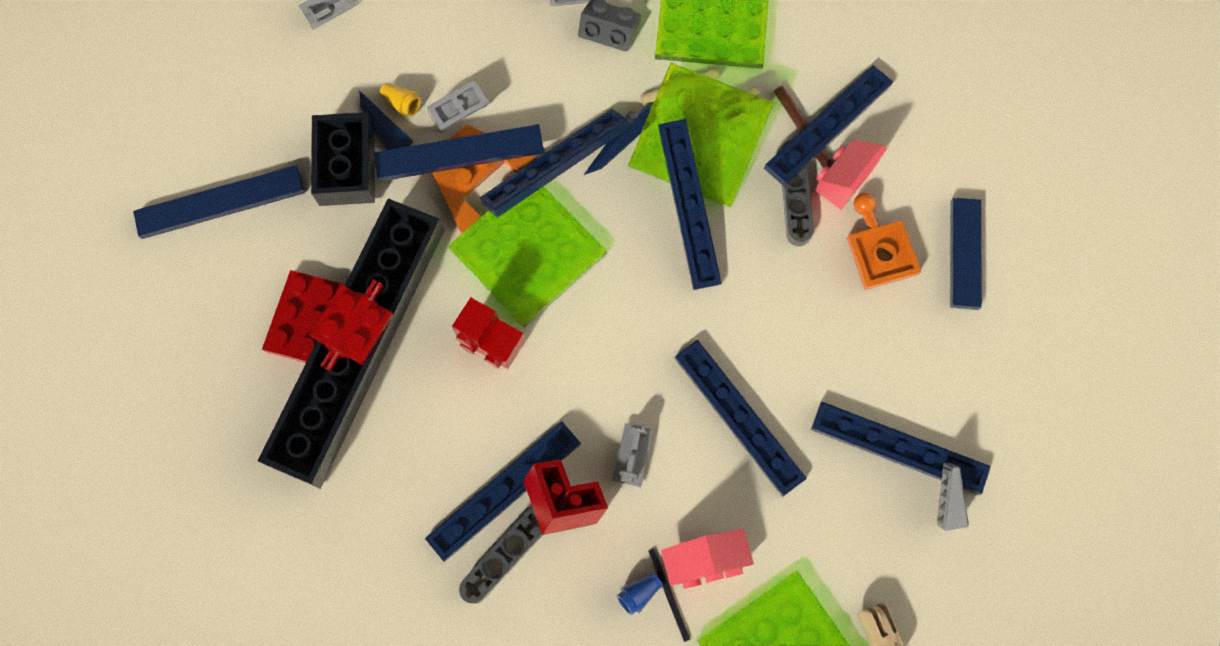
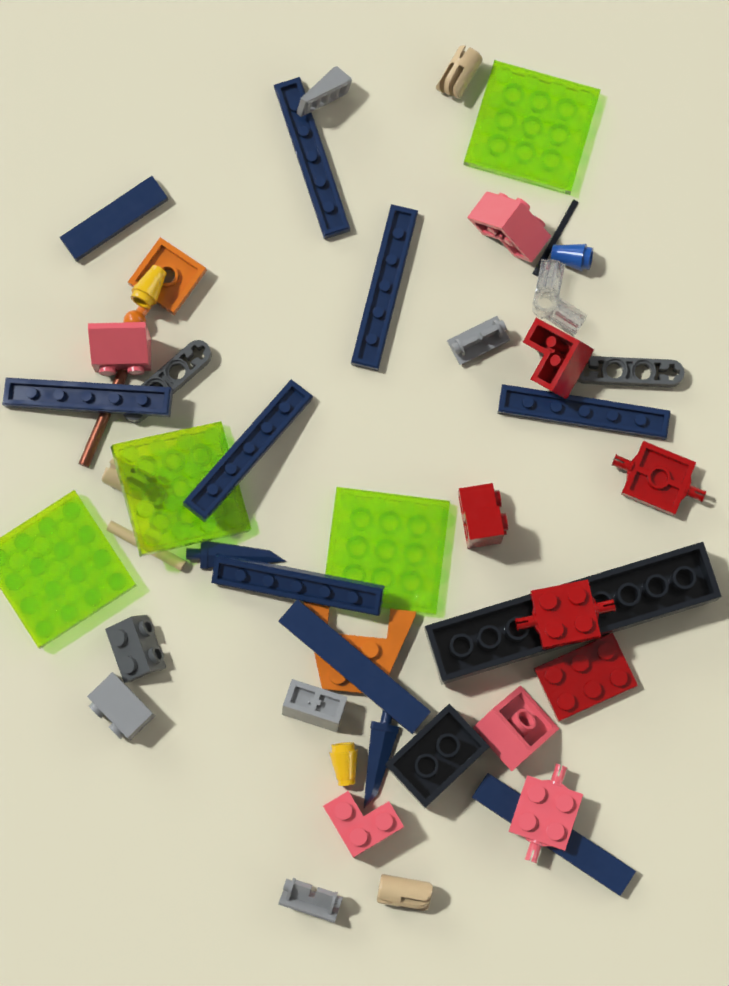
camera: 130 degrees left, 5 degrees up
(234, 203) = (546, 813): none -> coral plate
(276, 67) = (404, 892): none -> tan arm
(312, 234) = (515, 728): none -> coral slope
(343, 71) = (362, 831): none -> coral brick
(398, 503) = (658, 478): none -> red plate
(630, 550) = (549, 286): none -> clear piece
(883, 227) = (148, 288): none -> yellow cone

